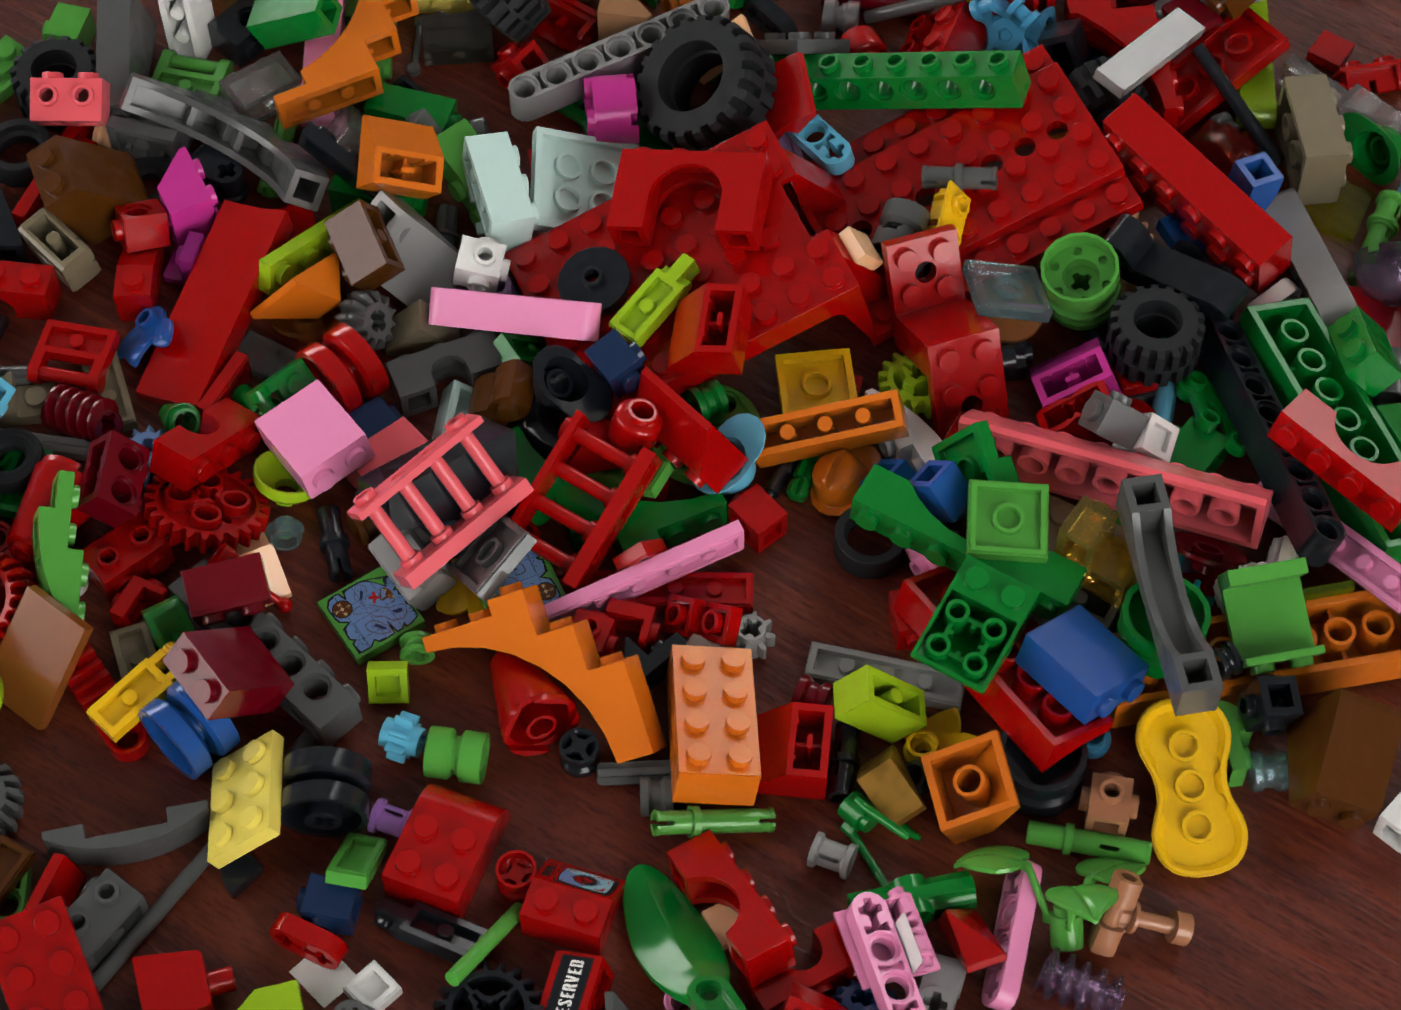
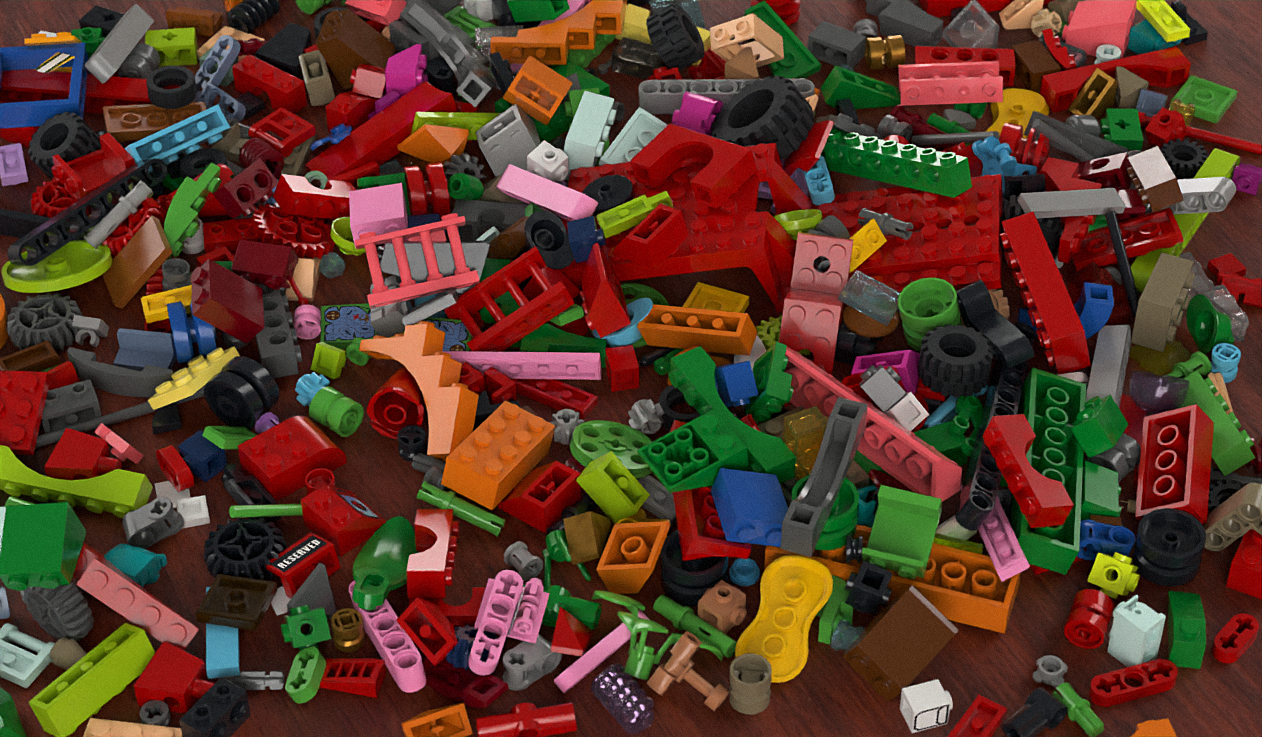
camera: 30 degrees right, 15 degrees down
(34, 783) = (90, 327): none -> light grey tile
(108, 656) = (175, 274): none -> dark grey wheel
(139, 787) = (144, 348): none -> sand blue panel
(216, 945) = (121, 448): none -> coral plate
(318, 635) = (307, 322): none -> bright pink wheel
(334, 543) = (355, 283): black pin -> none
(363, 246) = (485, 130): brick -> none
(399, 336) = (465, 187): none -> green brick
(635, 425) = (572, 273): red head -> none
(639, 552) = (526, 344): red tile -> none
(705, 618) = (542, 401): red slope -> none
(708, 399) = (635, 289): green wheel -> none
(831, 642) = (604, 441): none -> bright green wedge
(836, 577) = (646, 416): none -> light grey gear
(853, 209) = (799, 220): none -> lime piece
(860, 248) = (785, 234): light nougat tile -> none
(1007, 521) = (759, 406): bright green tile -> none
(1210, 892) = (750, 683): none -> dark tan wheel

